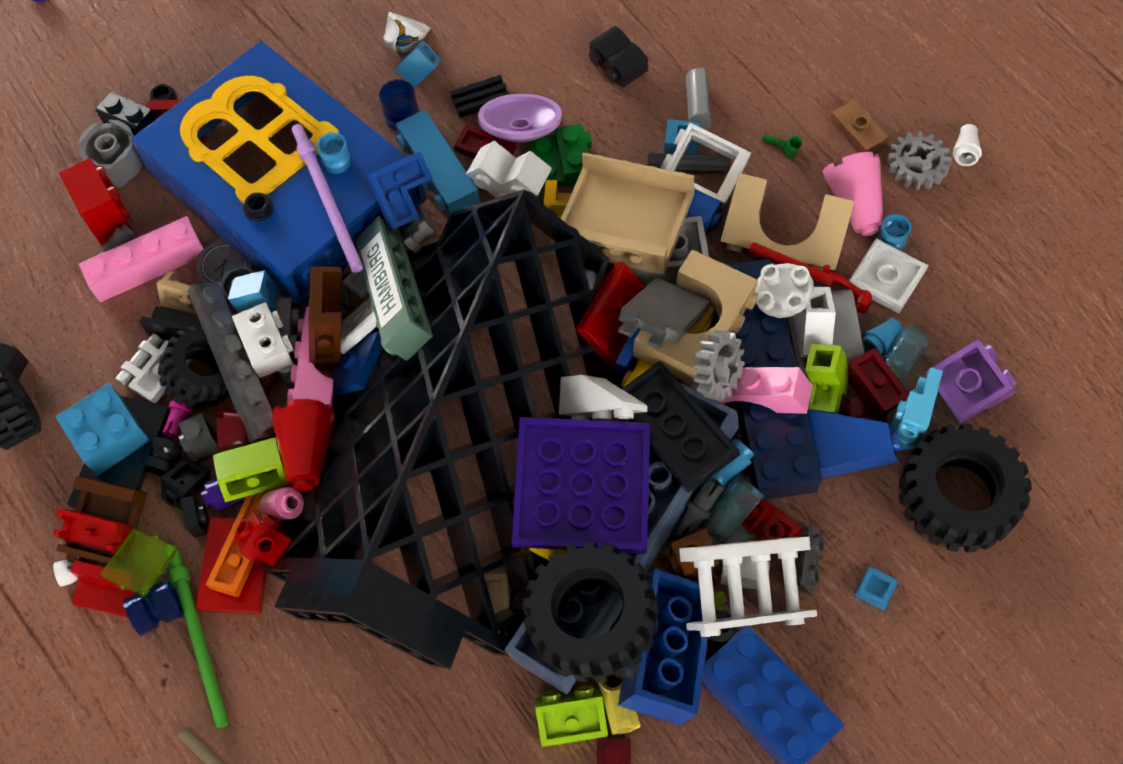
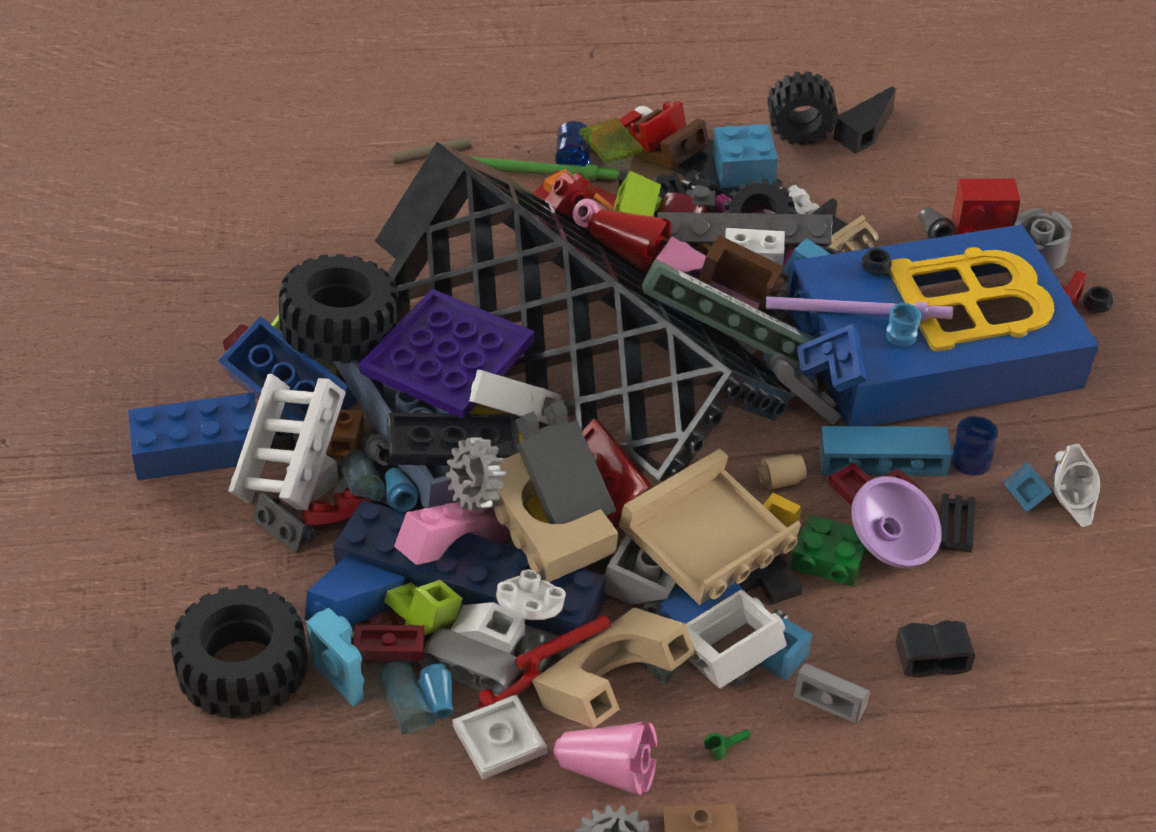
camera: 115 degrees right, 20 degrees down
(127, 111) = (1082, 255): black brick -> none
(142, 259) = (904, 212): bright pink brick -> none
(504, 174) = (826, 478): white brick -> none
(876, 588) = (218, 560): dark azure tile -> none
(895, 231) = (541, 766): dark azure wheel -> none
(973, 381) = (333, 732): medium lavender plate -> none

